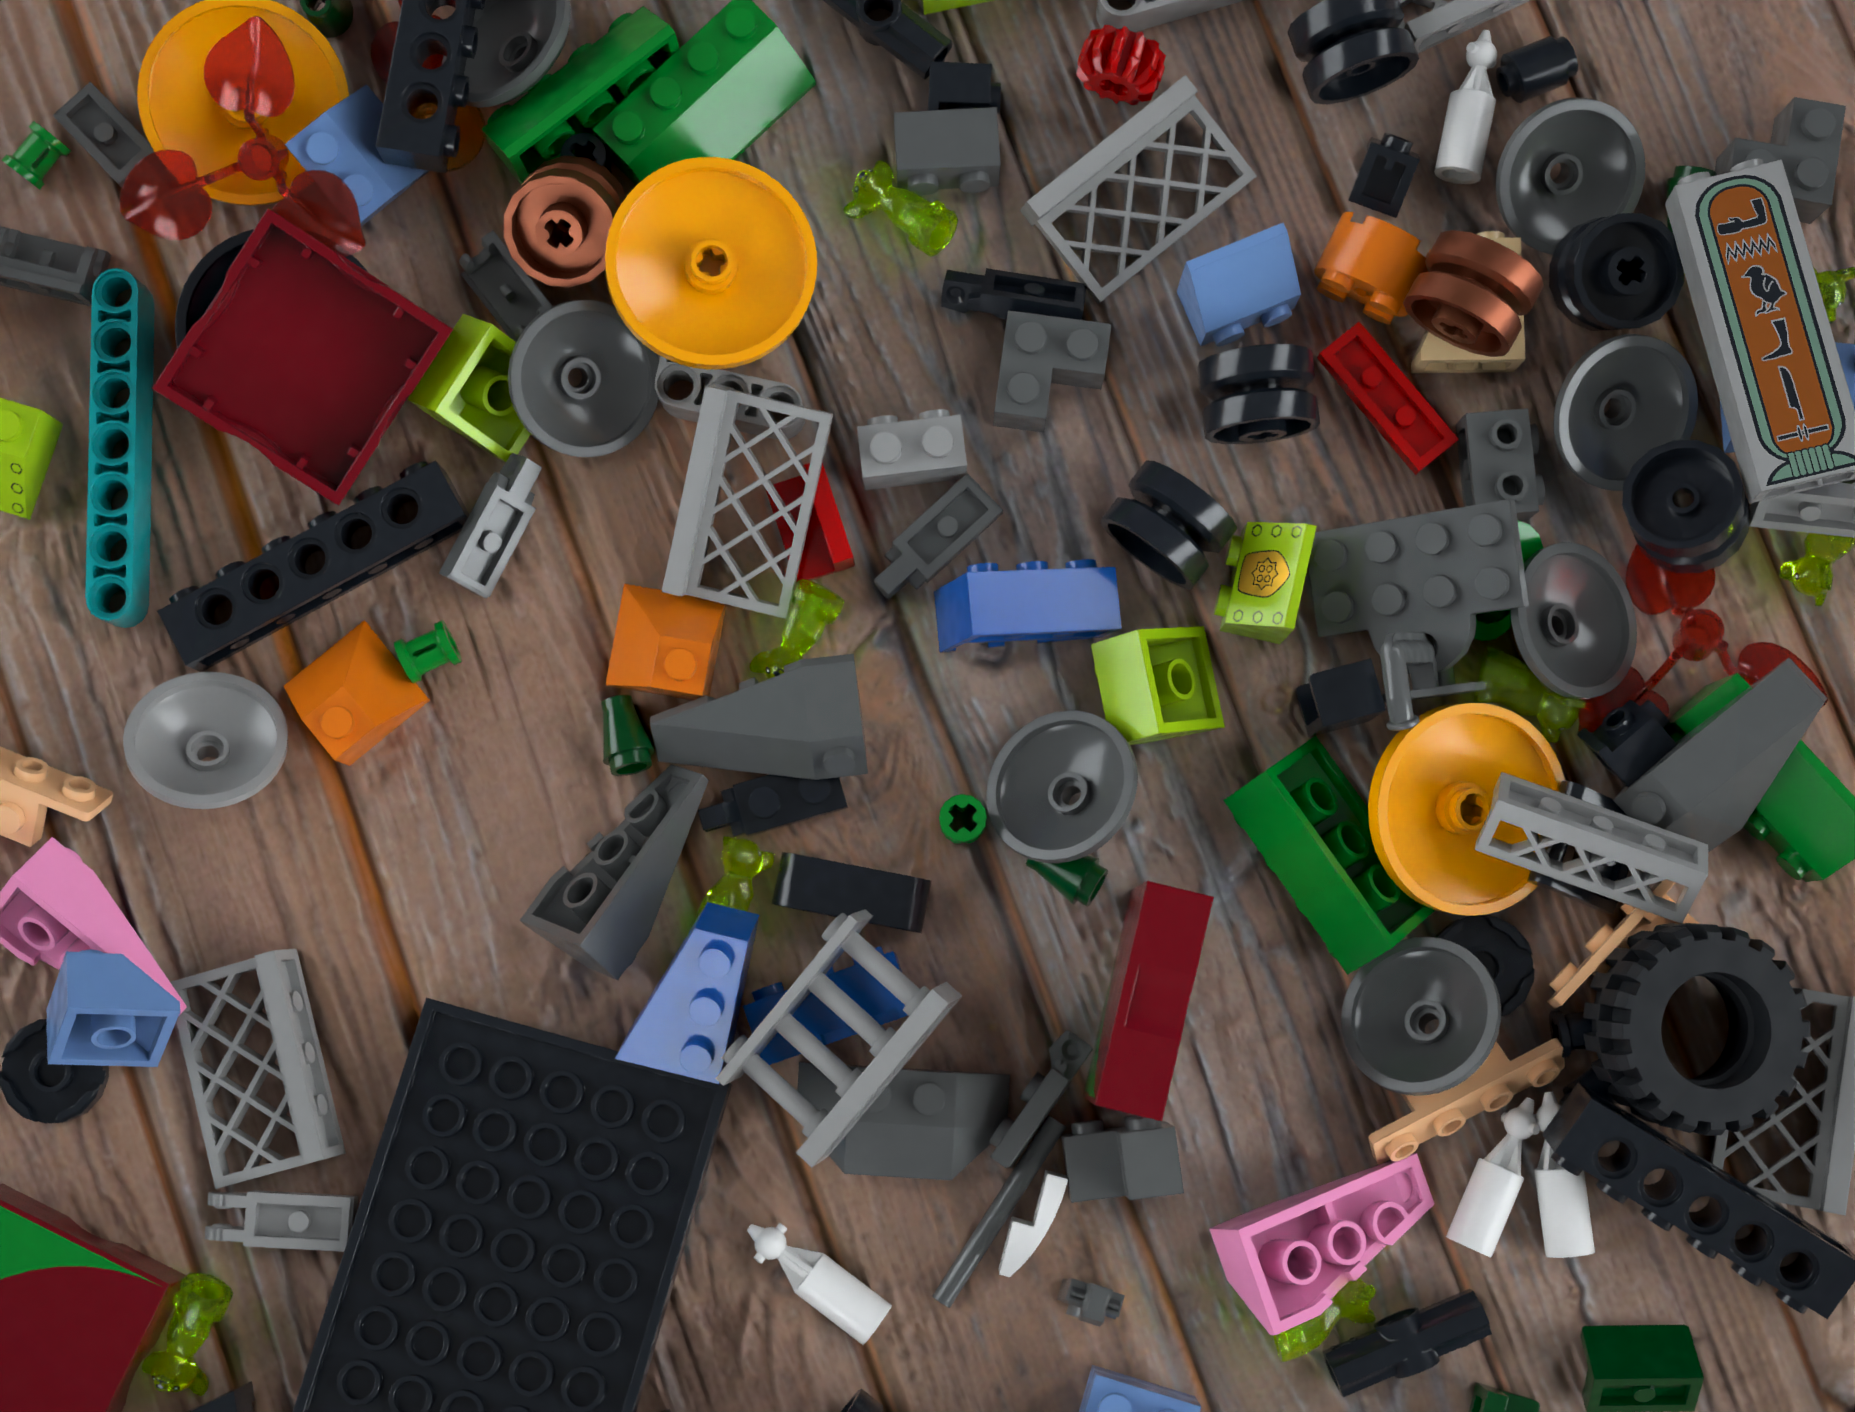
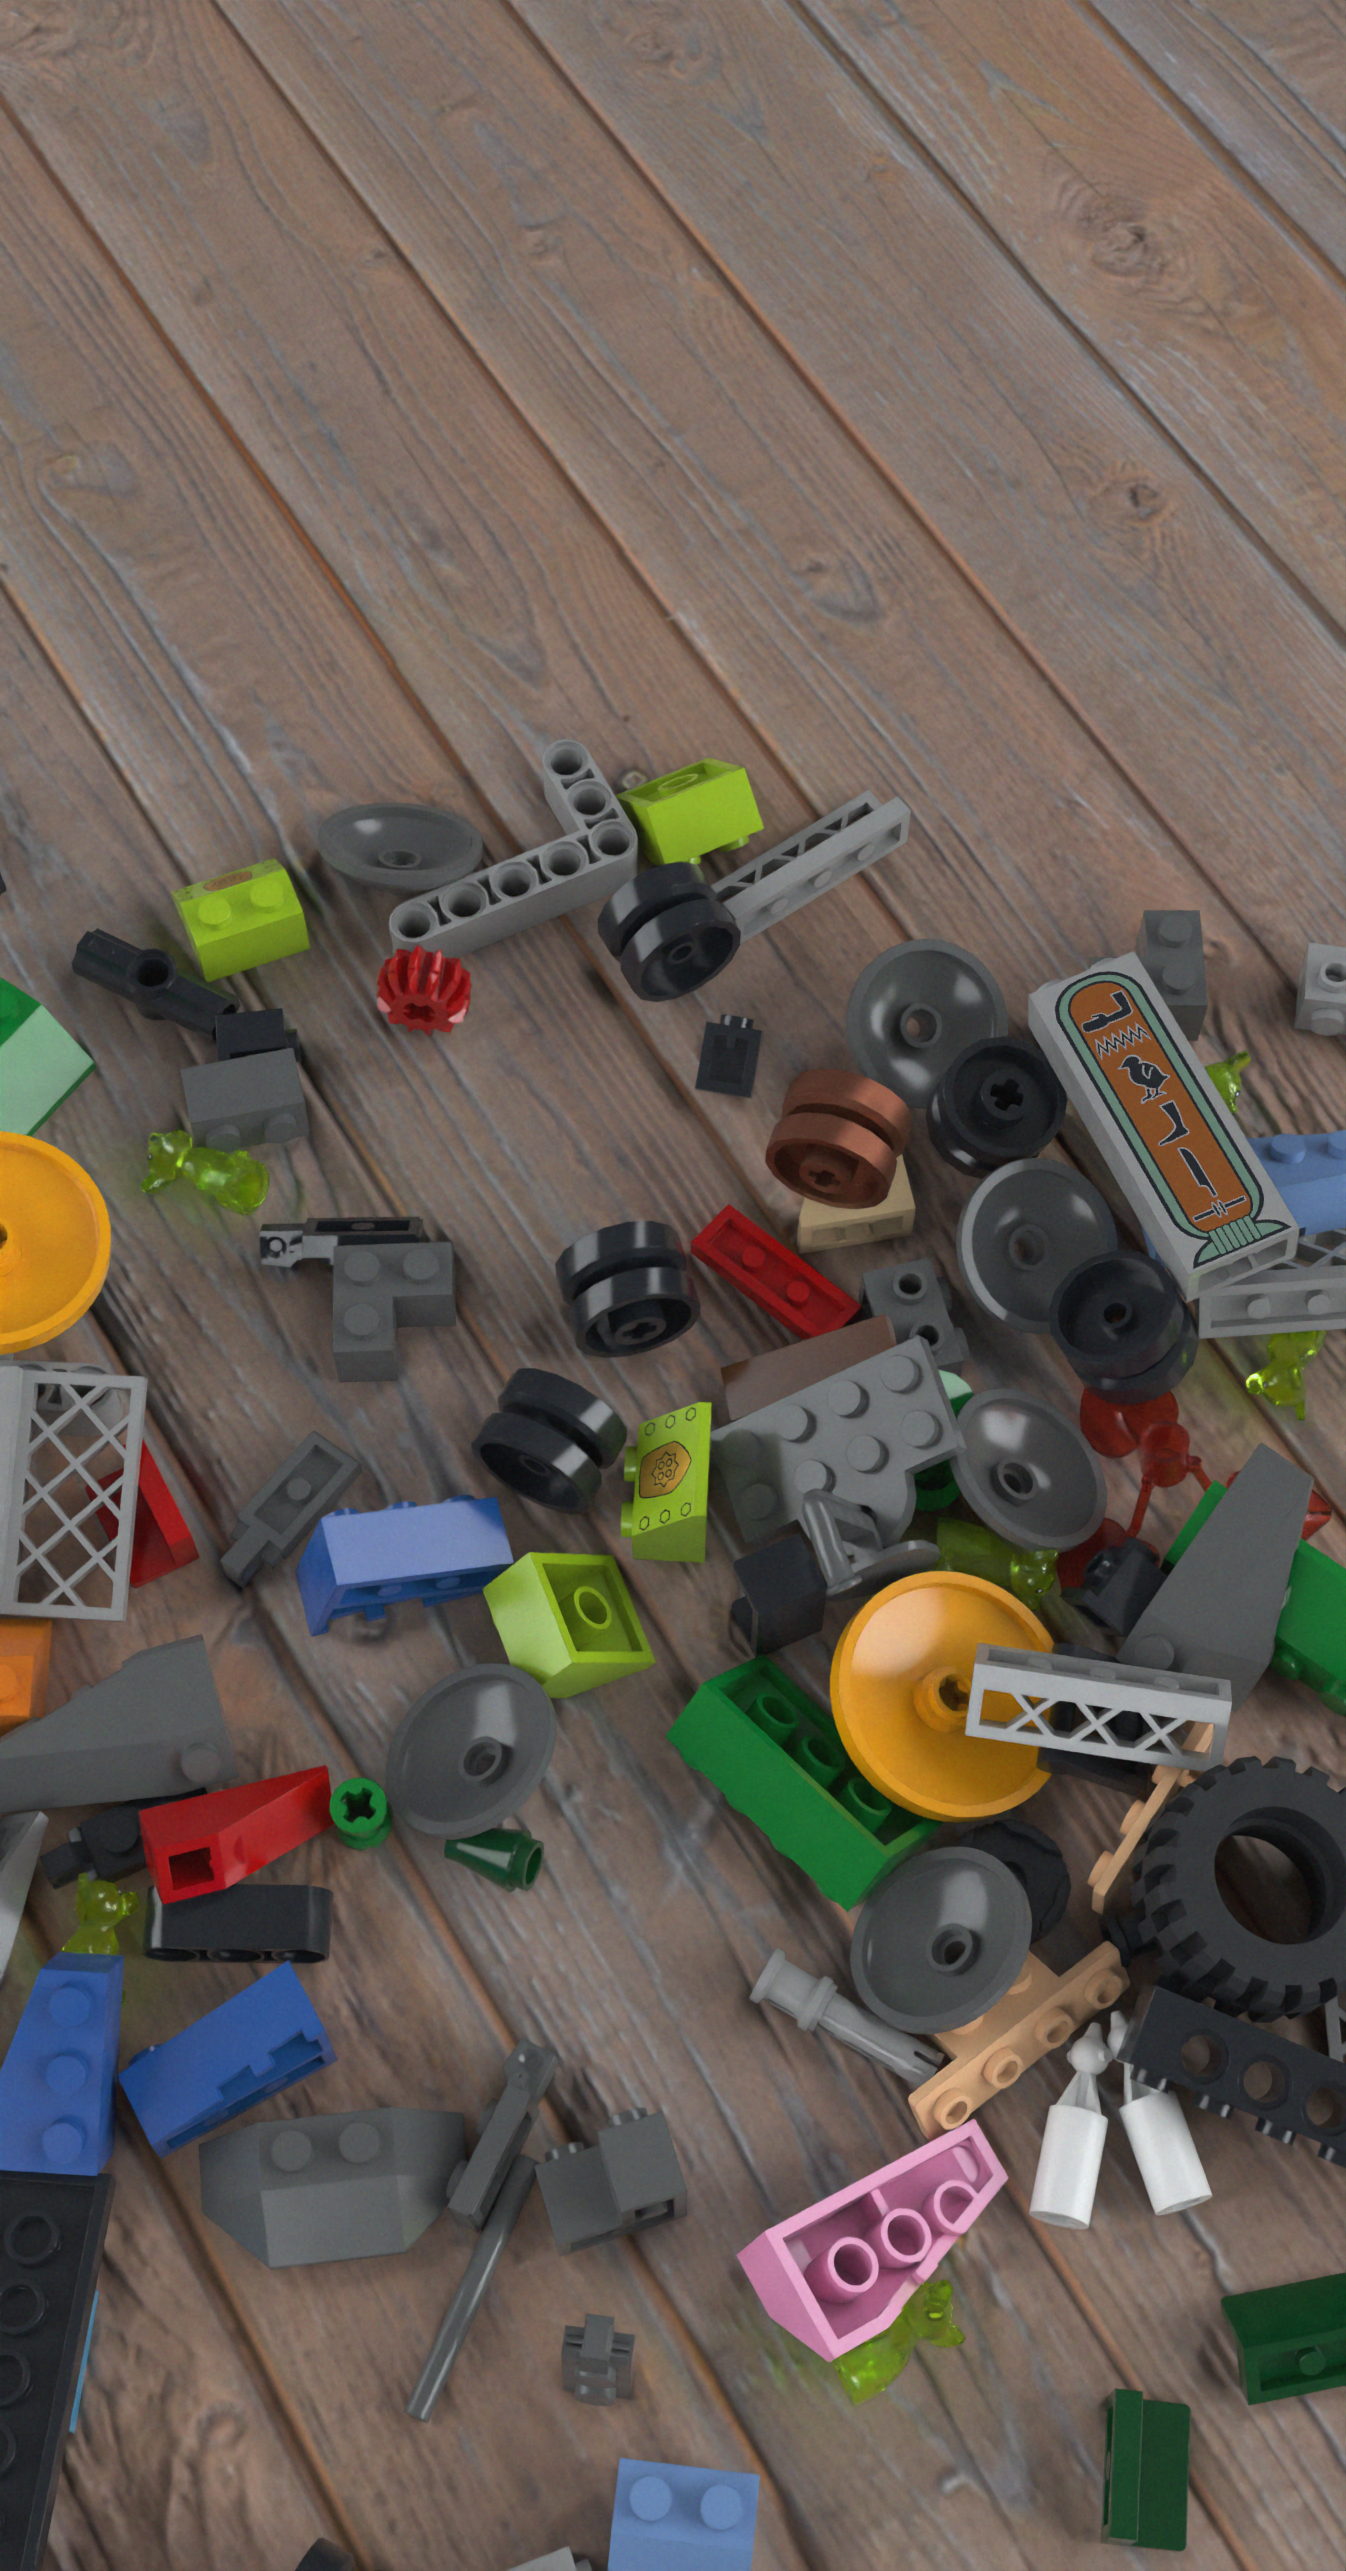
camera: 15 degrees left, 20 degrees down
(812, 611) = (145, 1621): clear neon green animal -> none
(823, 1283) = (262, 2418): white wheel -> none
(851, 824) = (232, 1832): none -> red slope
(890, 1048) = (299, 2075): light grey fence -> none
(912, 450) = (246, 1416): light grey brick -> none
(1025, 1235) = (509, 2304): white slope -> none
(1114, 153) = (421, 1090): light grey fence -> none
(1147, 999) = (601, 1959): dark red tile -> none
(1240, 286) = (588, 1180): medium blue slope -> none
(1310, 1043) = (818, 2005): none -> light grey pin
(1371, 265) = (725, 1143): orange brick -> none
(1400, 492) = (789, 1369): none -> reddish brown tile
(1407, 1342) = (1006, 2355): black piece -> none
(1469, 118) = (809, 991): white wheel -> none
(1536, 68) = (871, 930): black brick -> none

